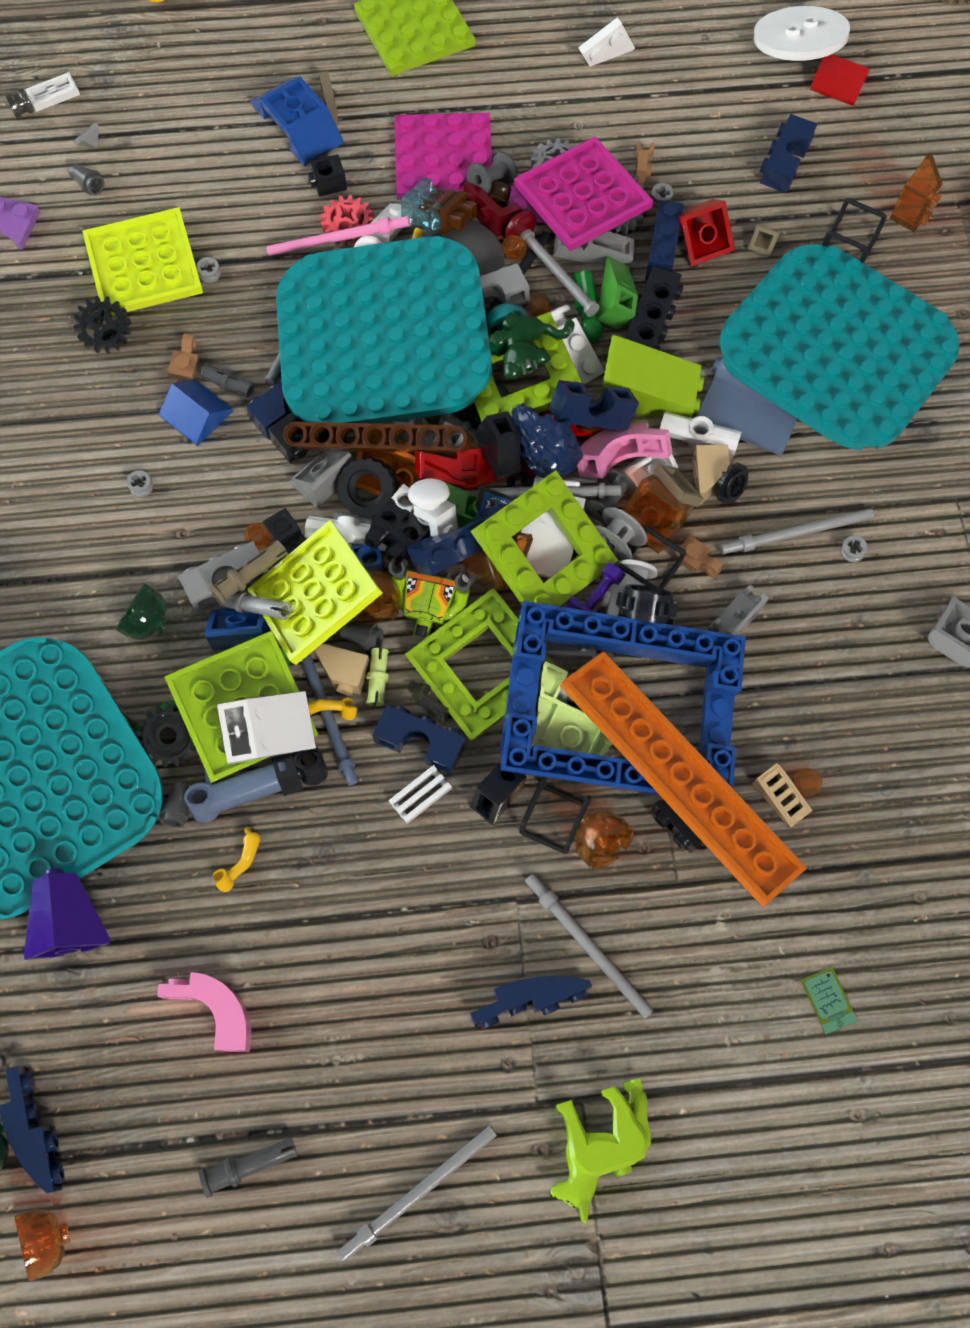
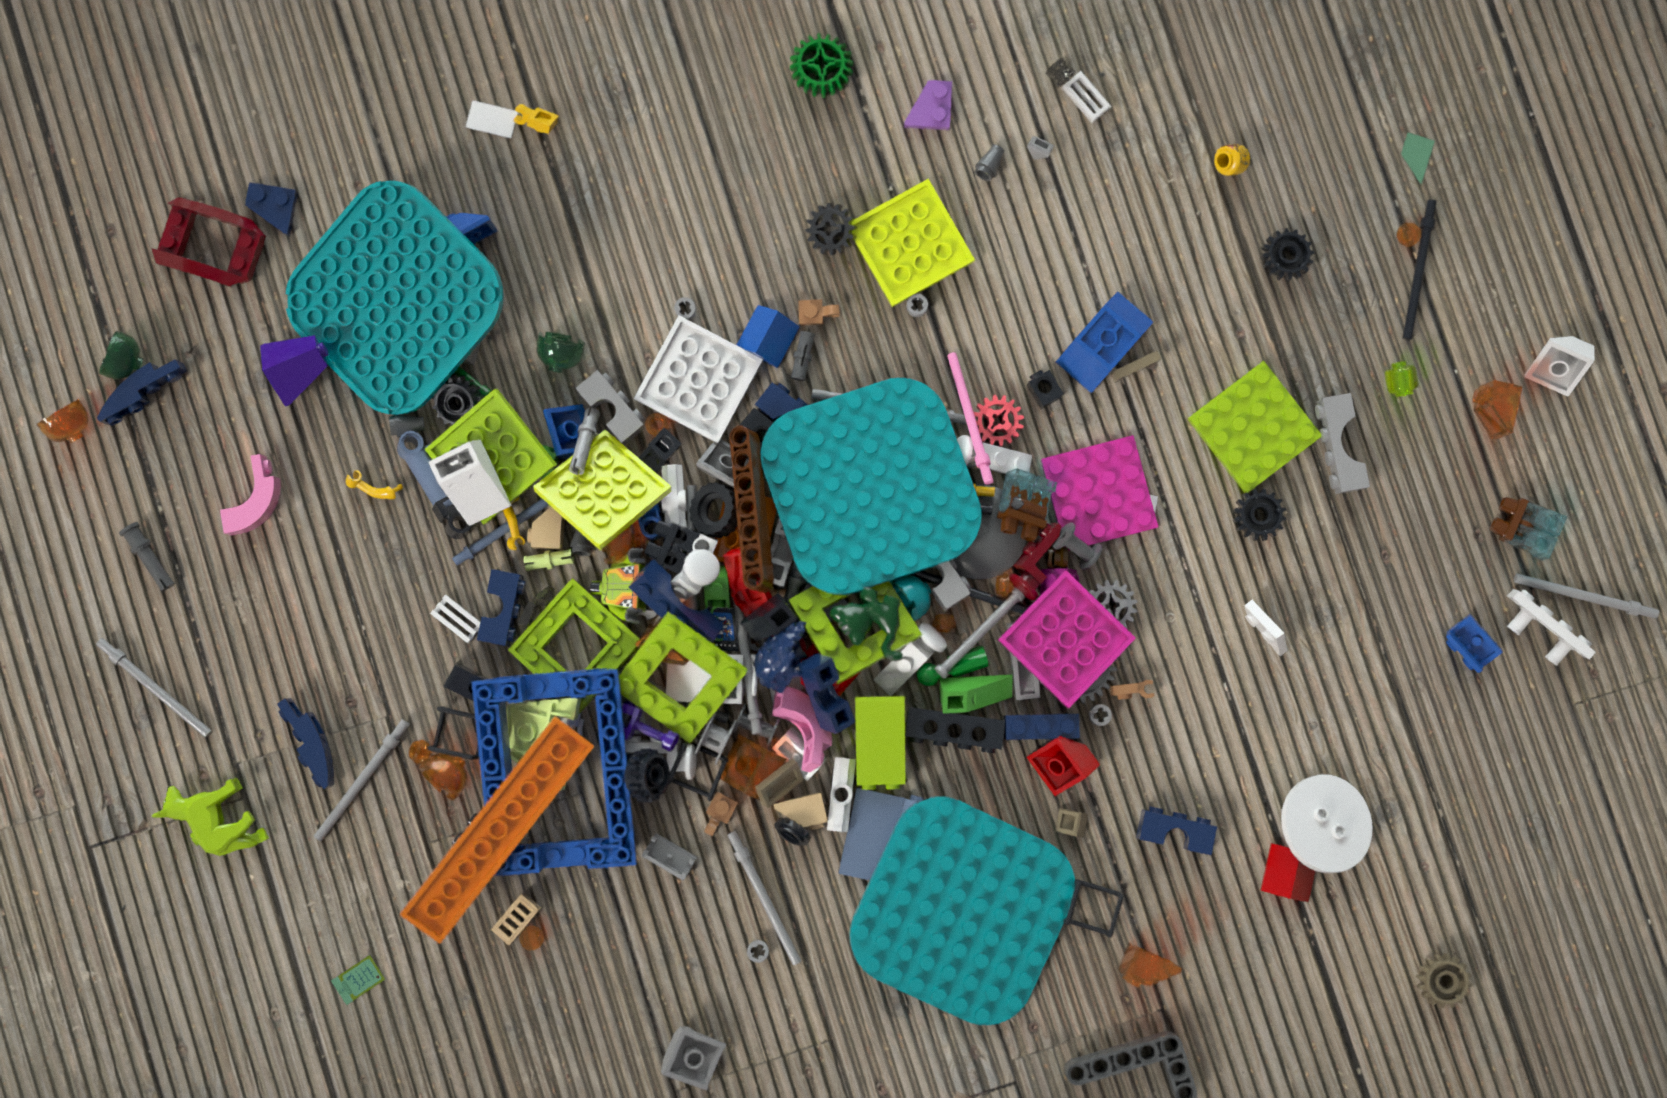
camera: 80 degrees right, 15 degrees up
(220, 484) = (698, 379): none -> white plate
(237, 579) = (600, 422): dark tan pin -> none
(498, 32) = (1272, 514): none -> black gear
(563, 870) = (419, 751): none -> clear orange plate

